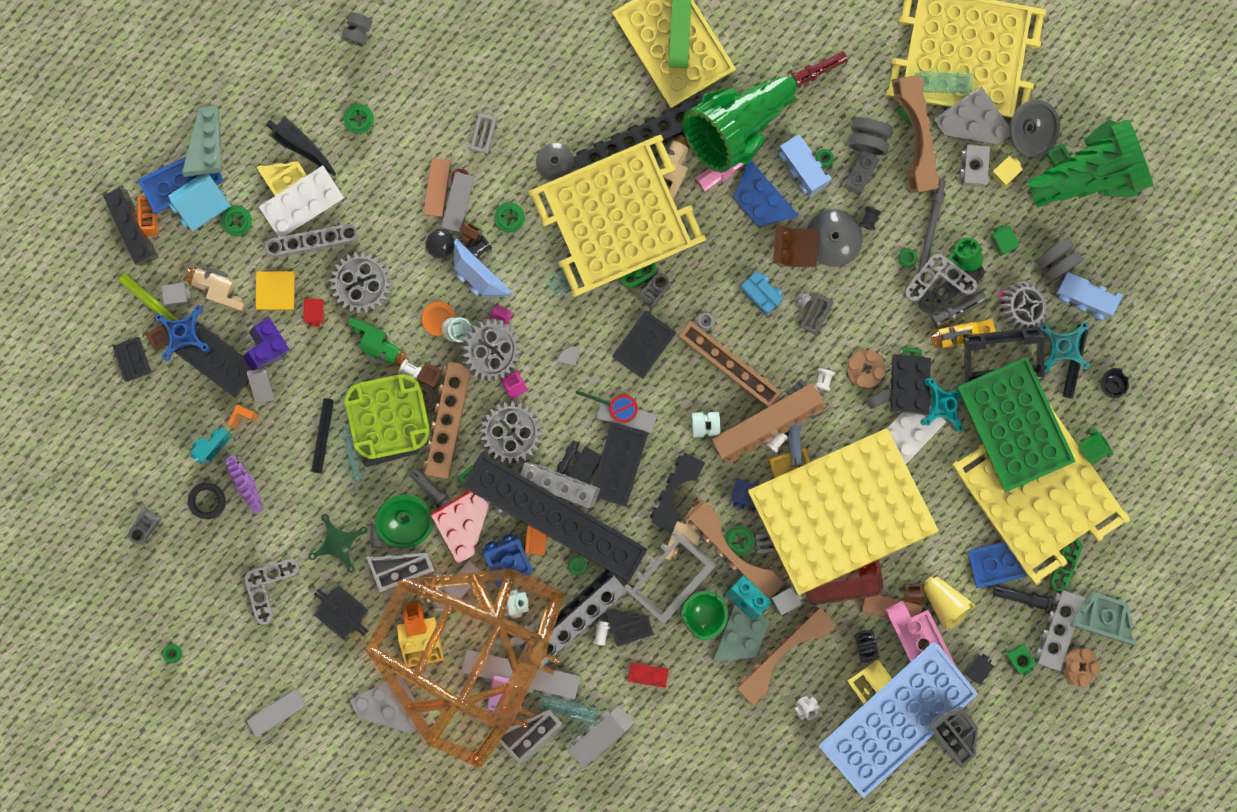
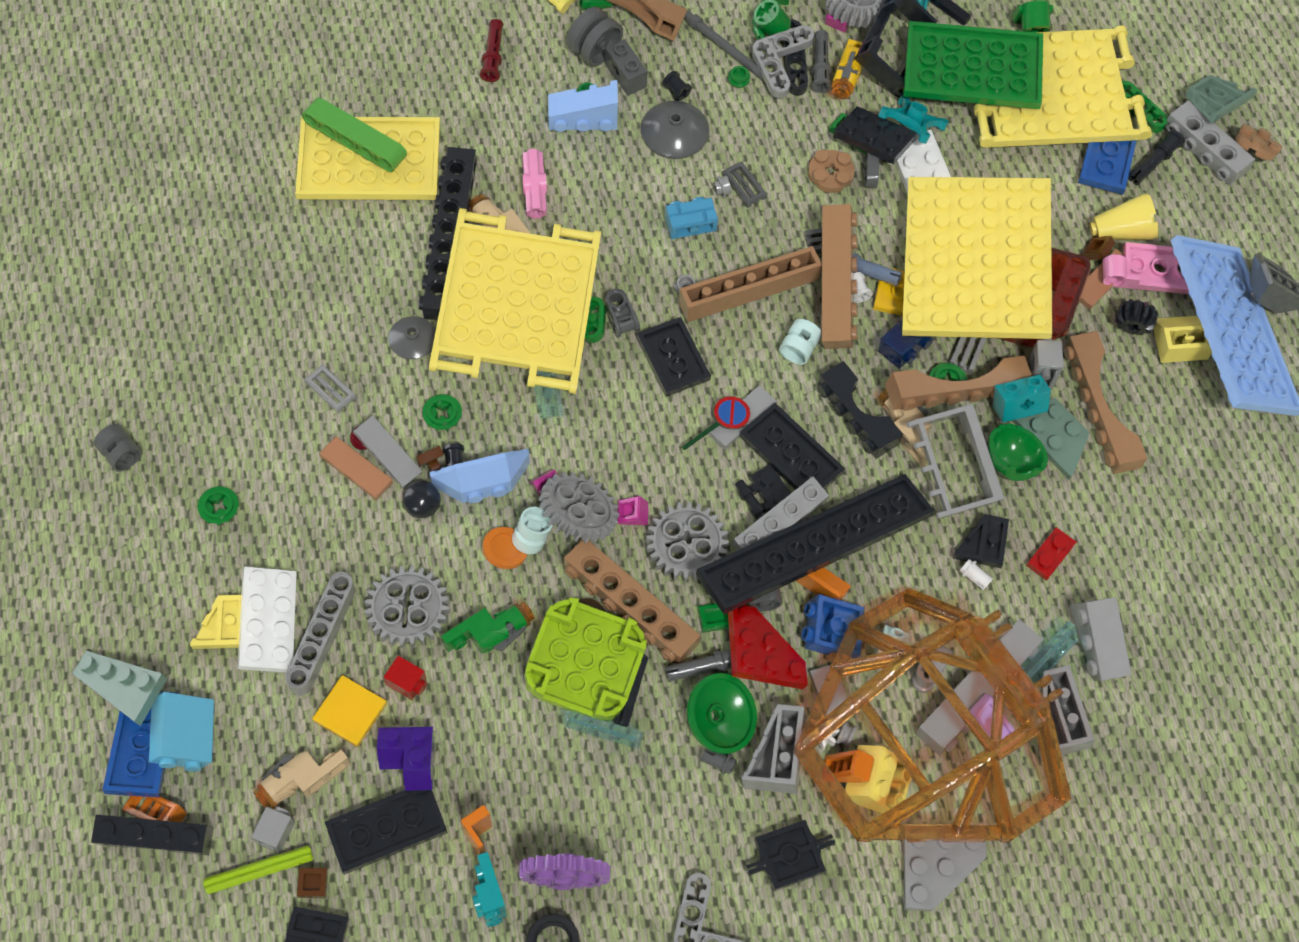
camera: 65 degrees left, 20 degrees down
(182, 333) = (326, 845): blue piece -> none
(227, 220) = (226, 701): green gear -> none
(260, 385) = (453, 788): light grey tile -> none
(294, 139) = (193, 587): black piece -> none
(322, 436) = (559, 755): black axle -> none
(338, 543) = (702, 808): dark green piece -> none
(409, 369) = (540, 610): white bush -> none
(429, 374) = (564, 589): reddish brown plate -> none
(569, 356) = (638, 437): light grey tile -> none
(577, 566) = (883, 558): green plate -> none
(578, 609) = (940, 569): brick -> none
(727, 123) = (496, 142): green cone -> none
(761, 199) = (589, 169): blue wing -> none
(795, 247) = (664, 159): reddish brown bracket -> none
(807, 708) = (1175, 410): white gear -> none
(824, 379) = (814, 208): white bush -> none
(979, 668) = (1213, 229): black brick -> none
(1013, 655) = (1222, 191): green brick -> none

